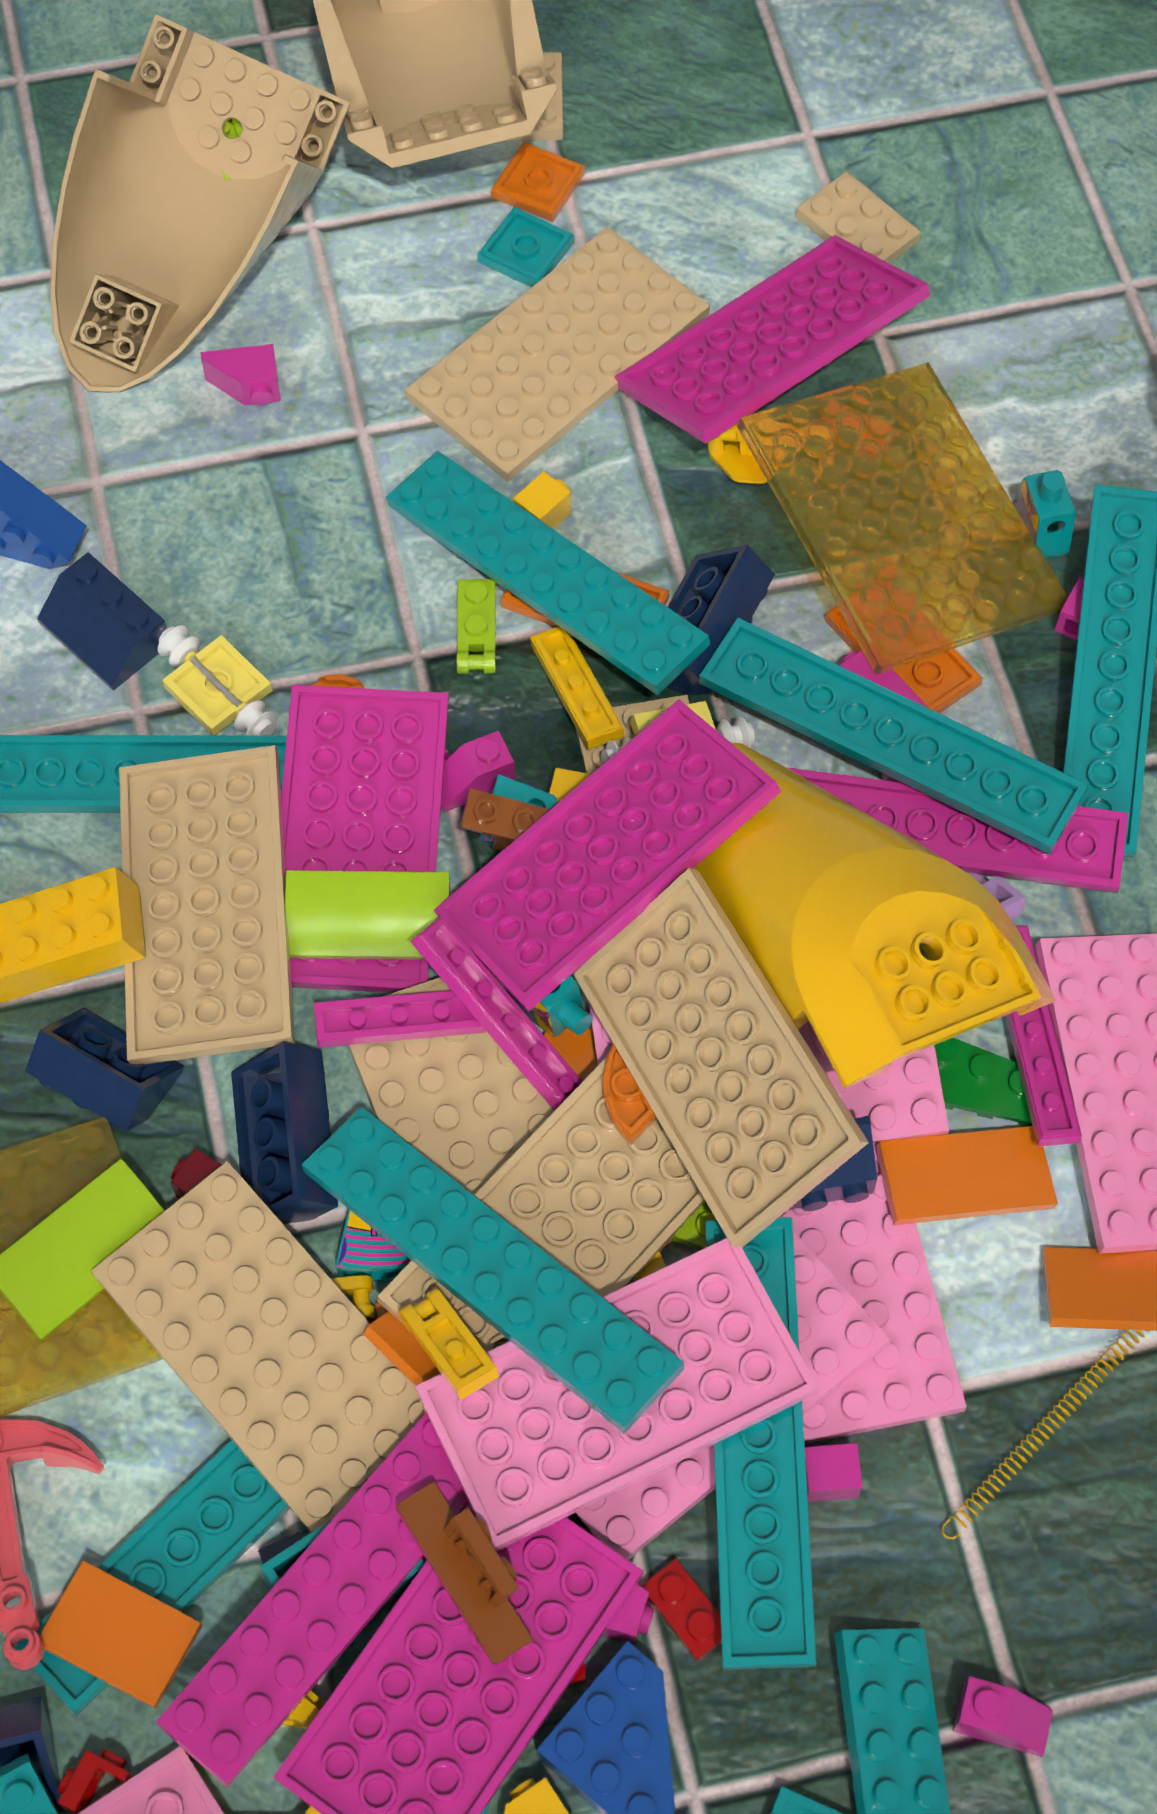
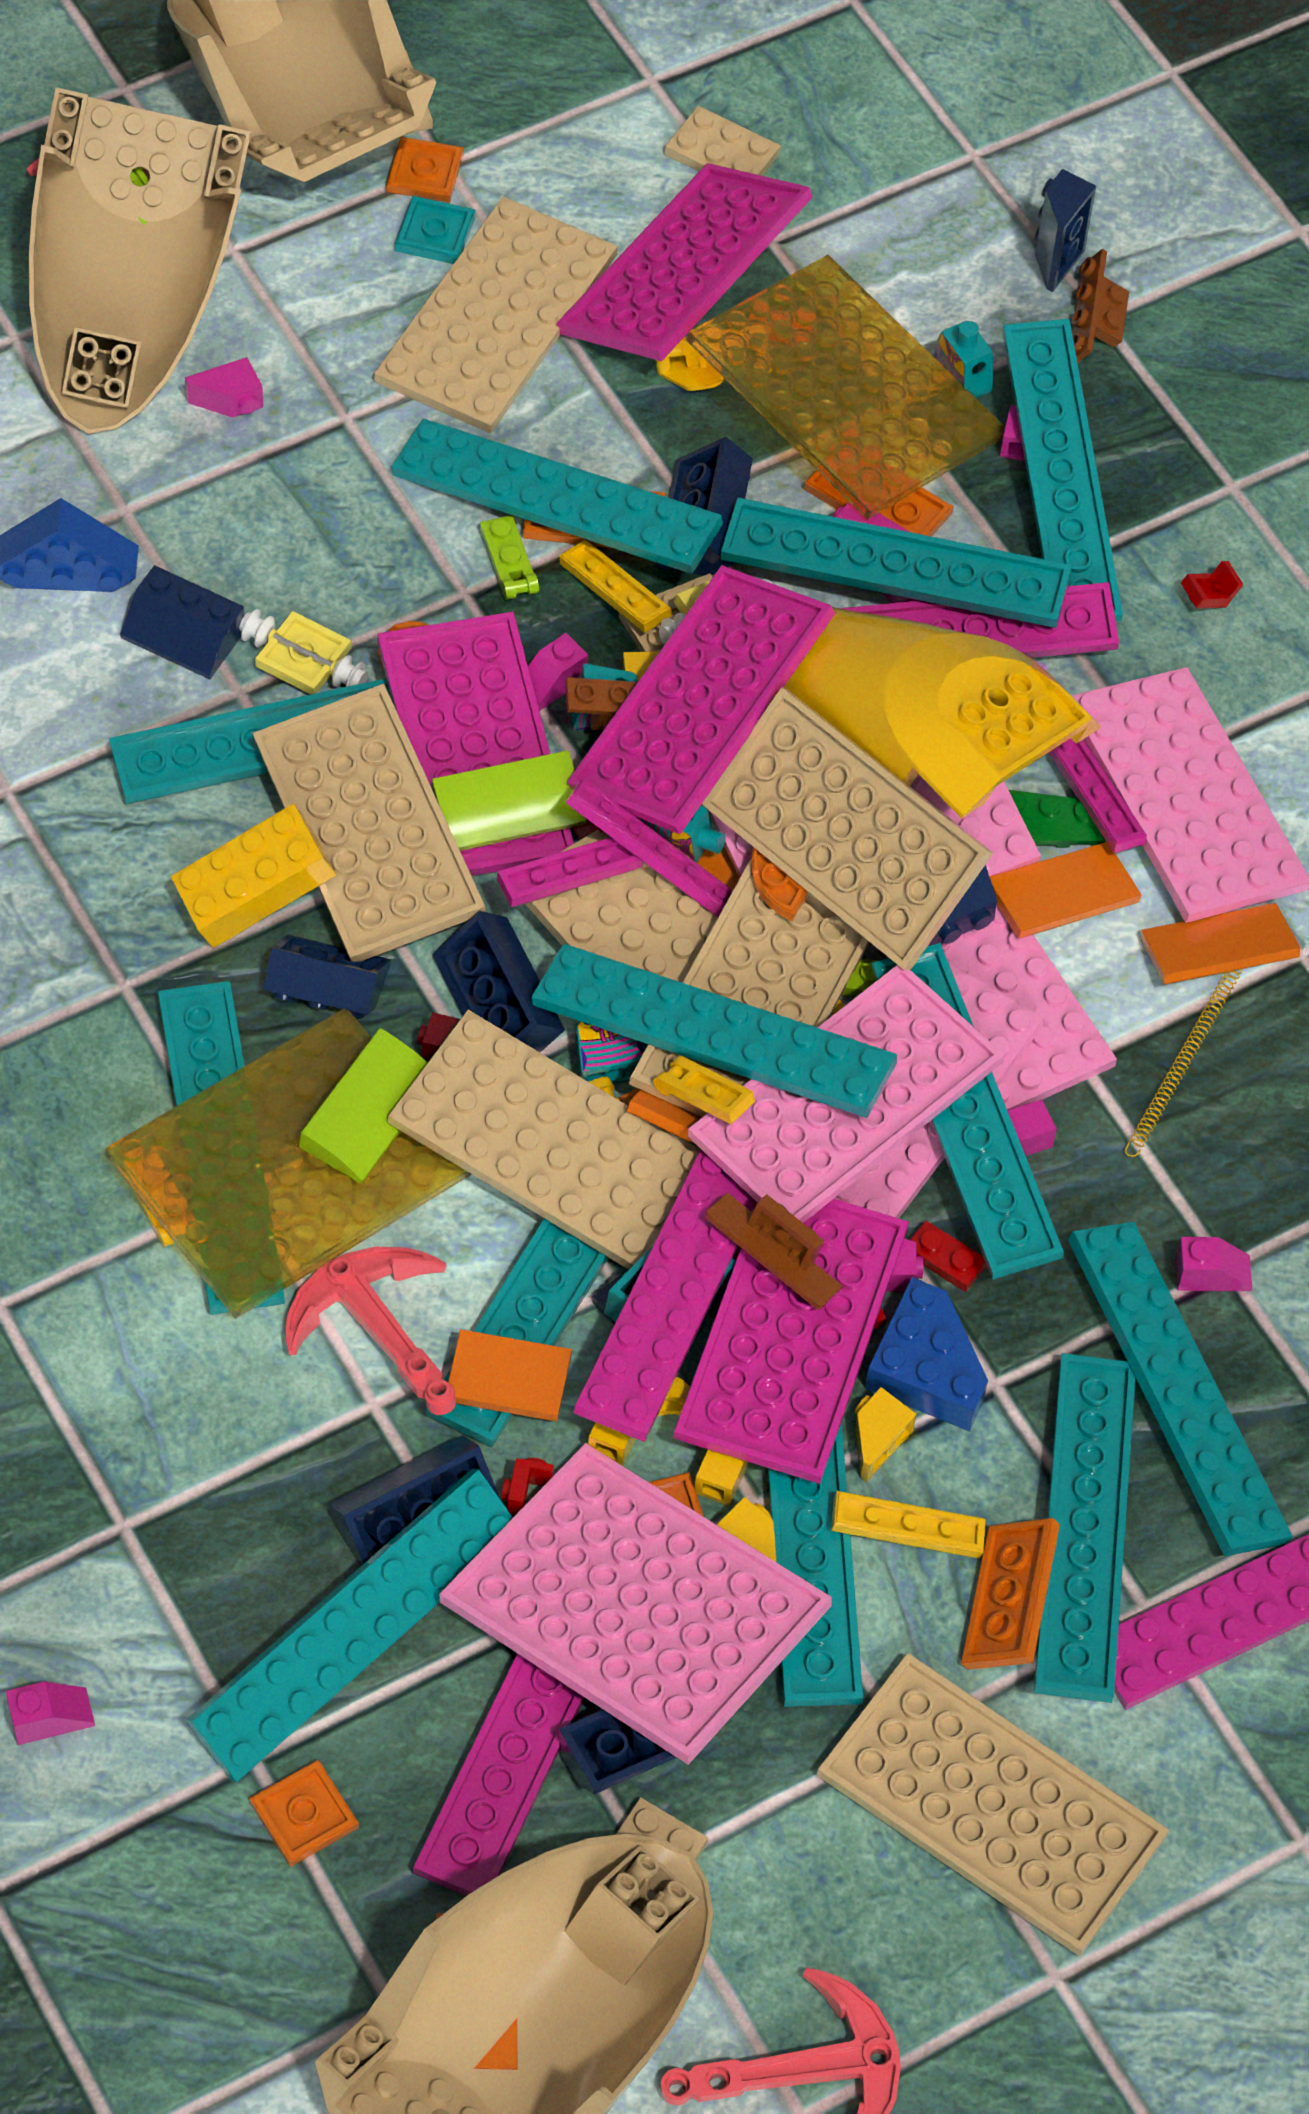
camera: 20 degrees left, 5 degrees down
(546, 499) = (534, 437): yellow brick -> none

